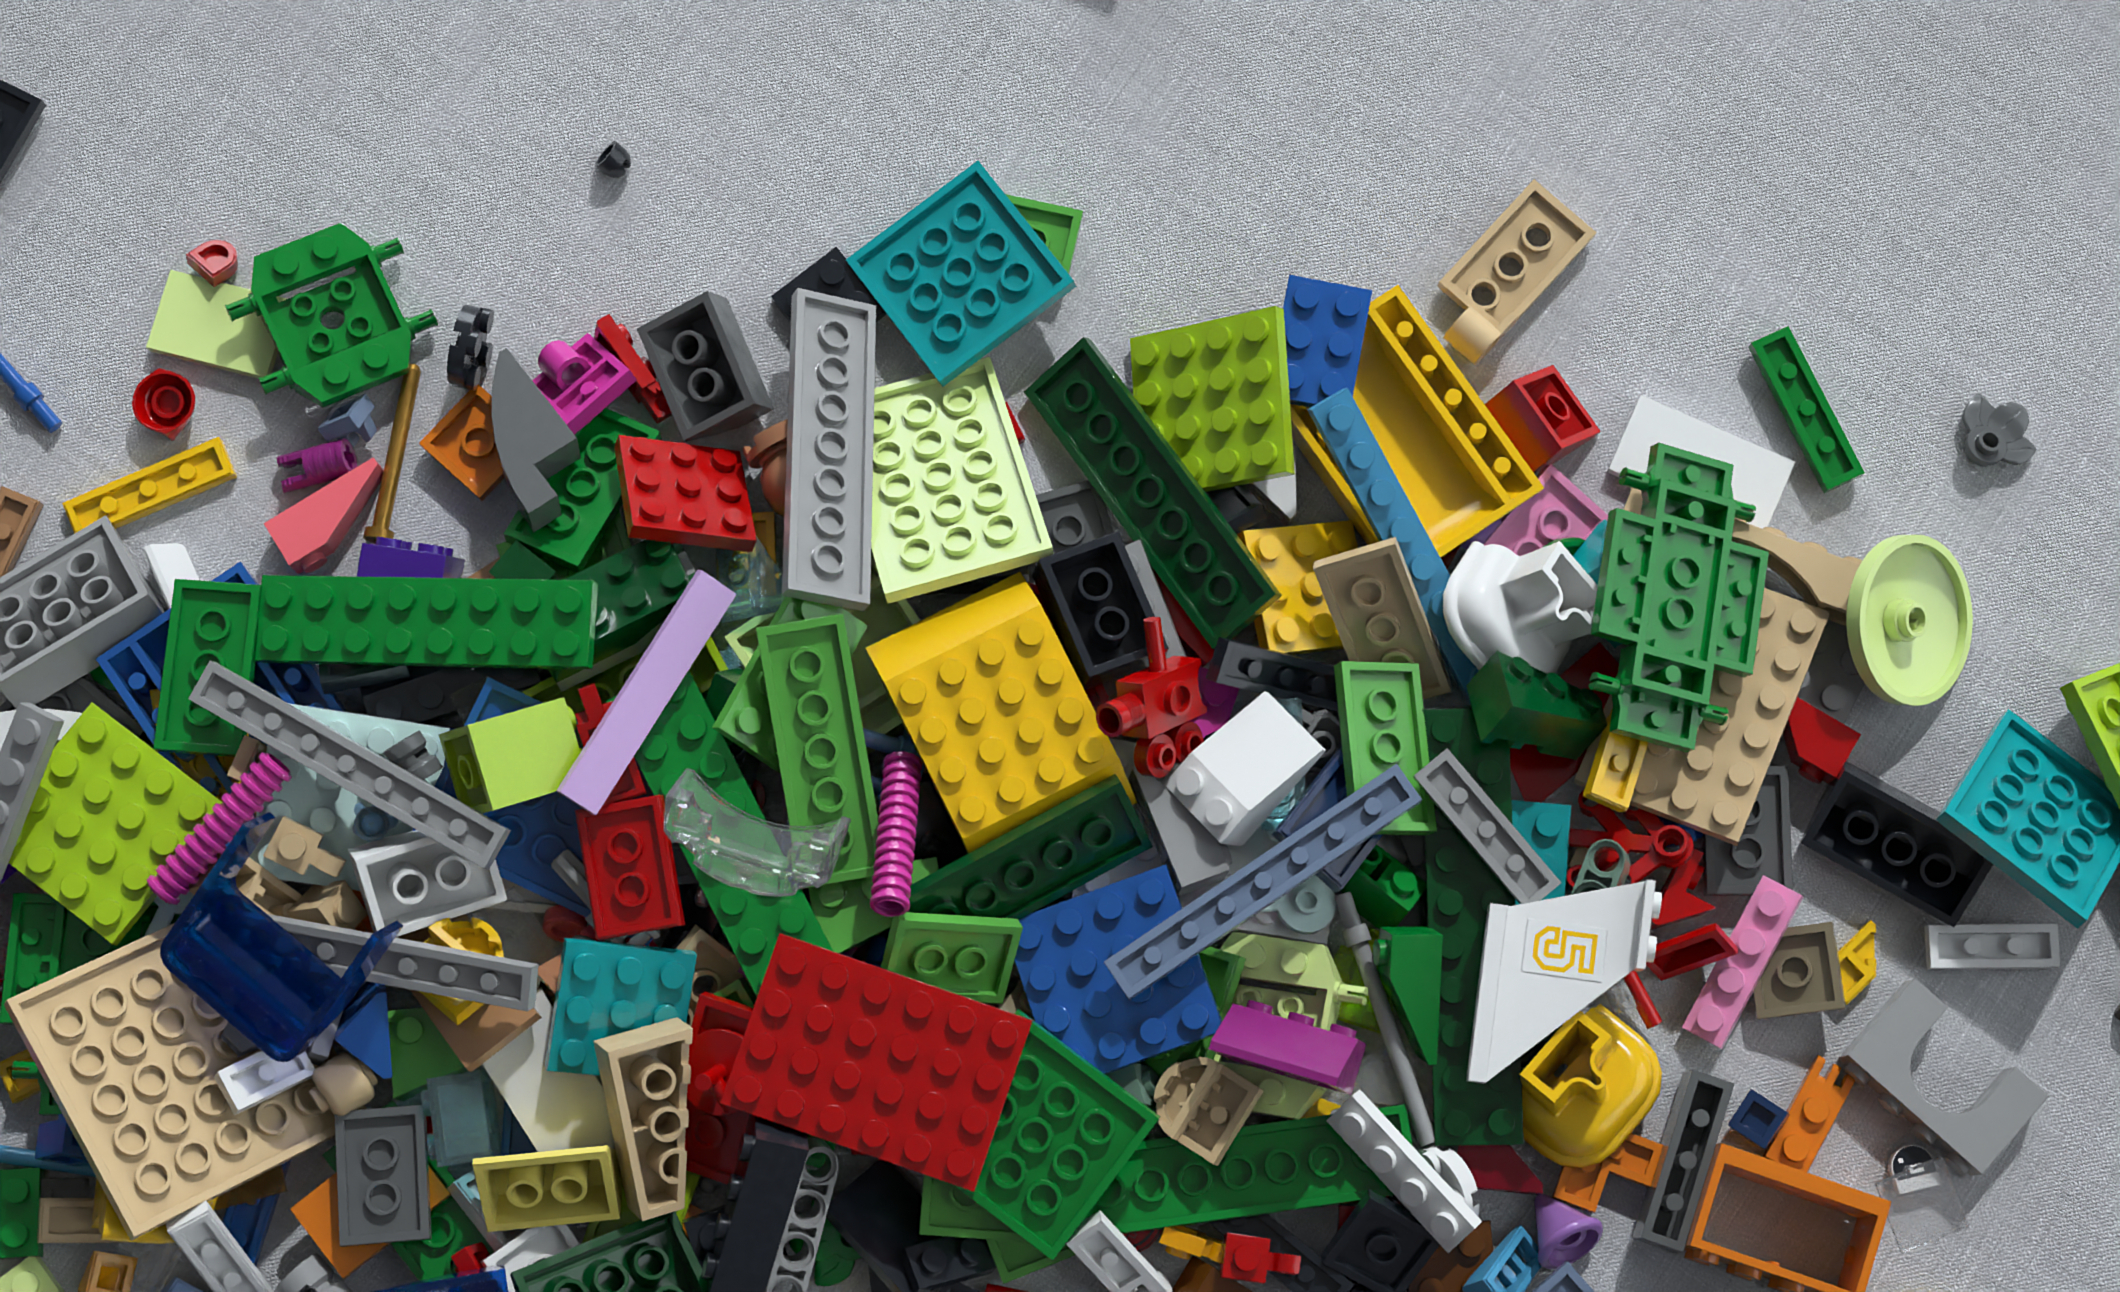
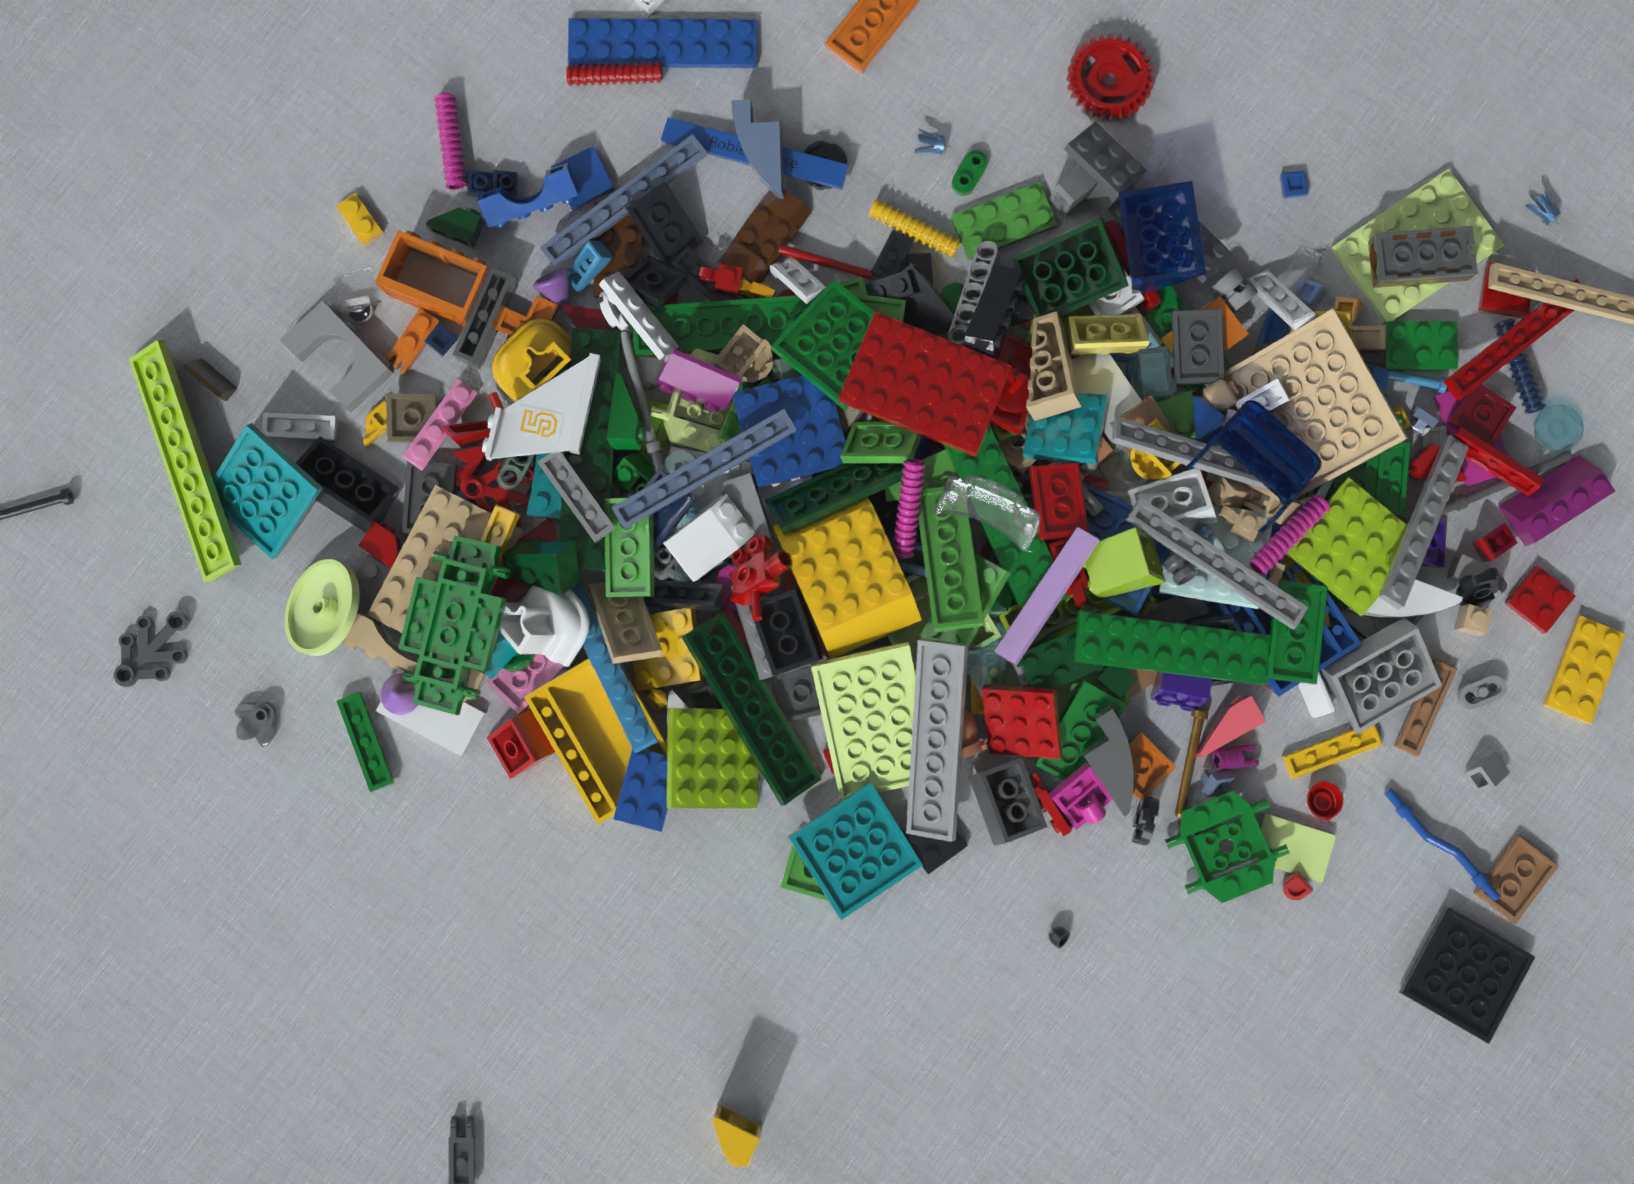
camera: 175 degrees left, 5 degrees up
(1314, 506) = (657, 699): none -> yellow plate
(1483, 326) = (548, 802): tan hinge -> none
(1763, 484) = (398, 695): none -> medium lavender hat

